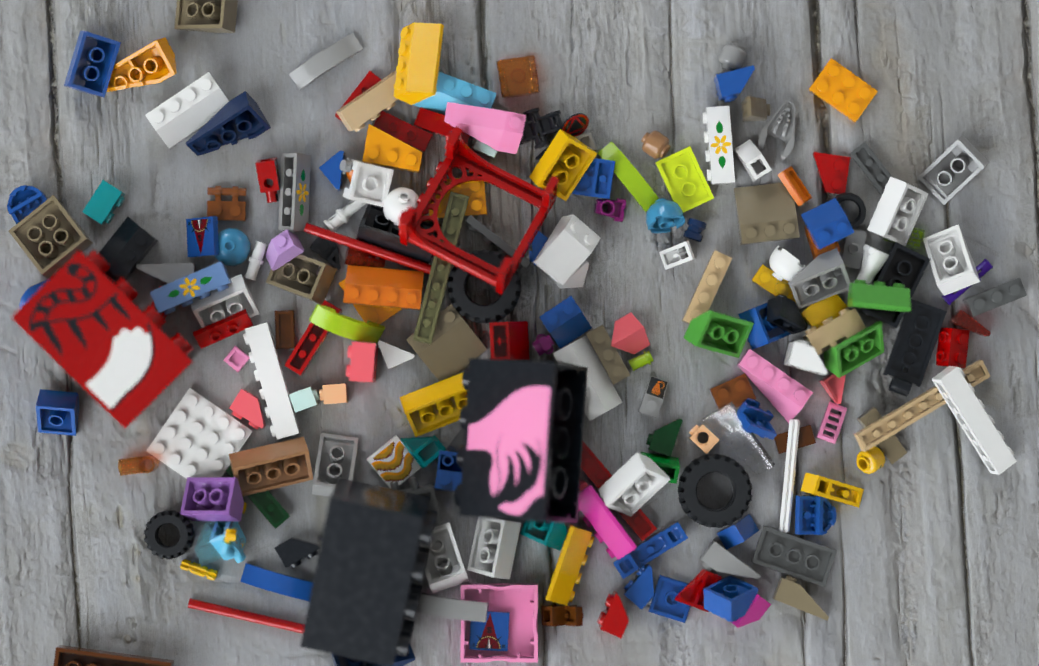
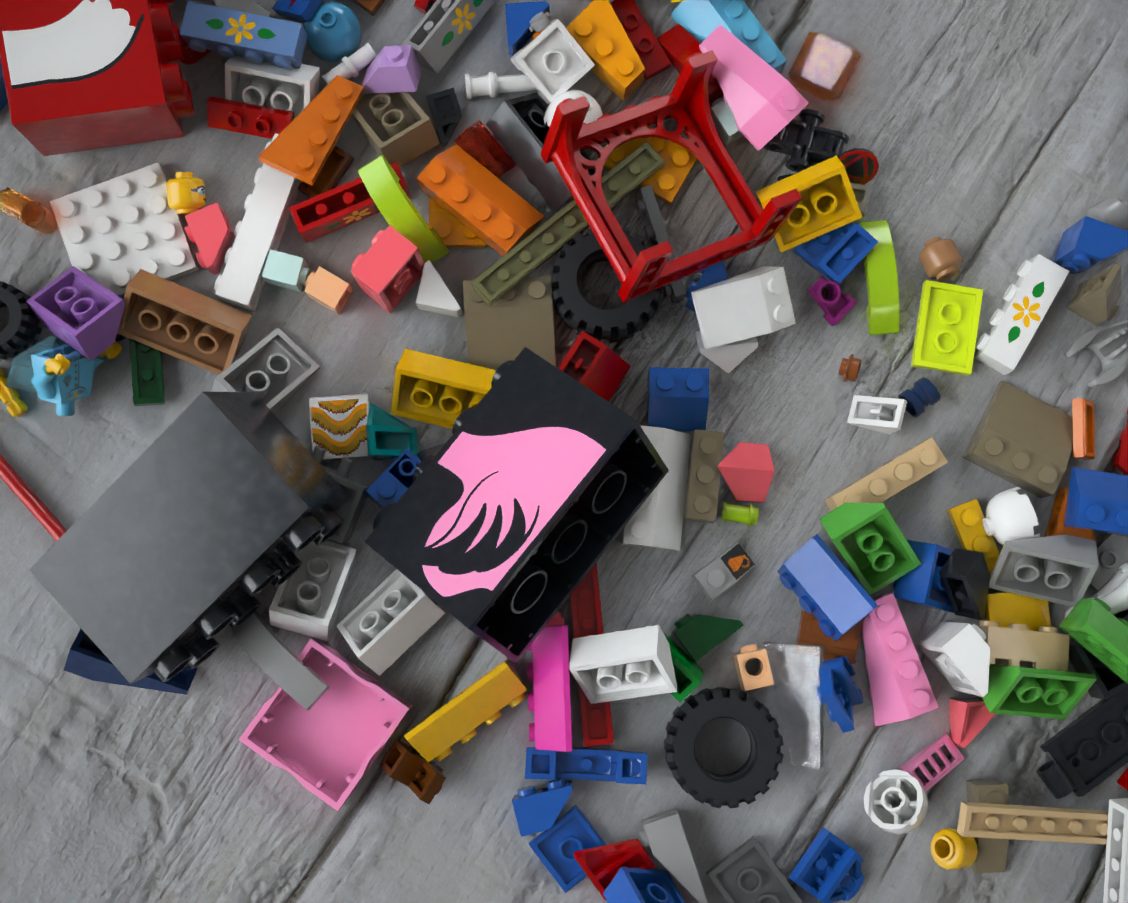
camera: 30 degrees right, 5 degrees down
(218, 395) = (186, 193): none -> yellow head
(236, 359) = (241, 168): bright pink tile -> none
(267, 318) = (313, 134): none -> orange wing
(276, 582) = (79, 463): blue slope -> none
(294, 550) = (128, 445): black slope -> none
(367, 248) = (494, 138): red piece -> none
(490, 634) = (307, 731): blue tile -> none
(543, 344) = (632, 405): magenta plate -> none
(547, 533) = (467, 650): teal slope -> none
(614, 618) = (477, 823): red slope -> none
(647, 239) = (850, 368): none -> dark orange plate
(664, 215) = (893, 353): dark azure cylinder -> none
(712, 371) = (826, 588): none -> slope
(738, 532) = (713, 822): blue slope -> none
(752, 160) = (1052, 362): white slope -> none
(789, 475) = (832, 795): white axle -> none
(805, 438) = (868, 751): reddish brown tile -> none
(824, 456) = (896, 802): none -> white cylinder
(832, 489) = (876, 851): yellow slope -> none

